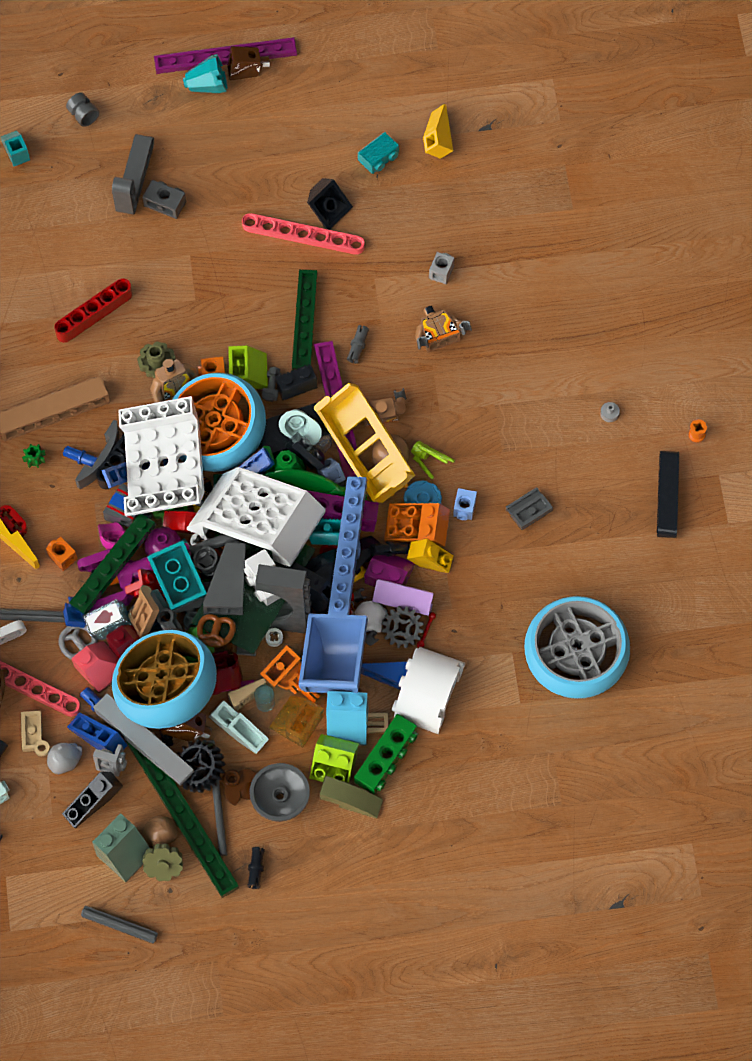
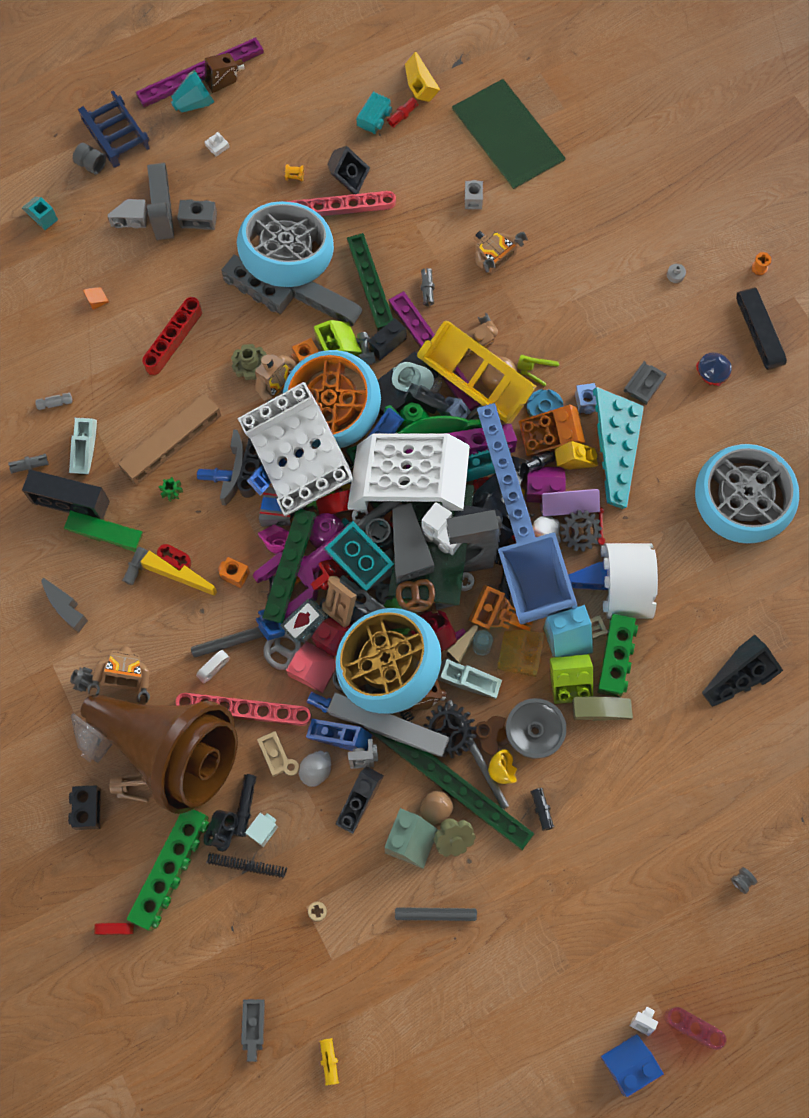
camera: 20 degrees left, 5 degrees up
(19, 881) = (313, 916): none -> tan bush
(36, 248) = (95, 297): none -> orange slope
(98, 177) = (129, 214): none -> light grey slope
(104, 97) = (105, 141): none -> dark blue fence
(181, 264) = (277, 302): none -> dark grey brick
(212, 134) = (216, 144): none -> white tile
(234, 257) = (285, 244): none -> wheel
(234, 816) = (501, 768): none -> yellow hair
(249, 320) = (327, 302): none -> dark grey beam
(275, 188) = (294, 172): none -> light orange bush
(407, 161) = (402, 112): none -> red pin
(413, 997) = (744, 880): none -> dark grey wheel
(478, 551) = (618, 441): none -> wing
(501, 810) = (745, 668): none -> black wedge
(505, 216) = (508, 133): none -> clear green piece
(602, 518) = (714, 368): none -> dark blue hair

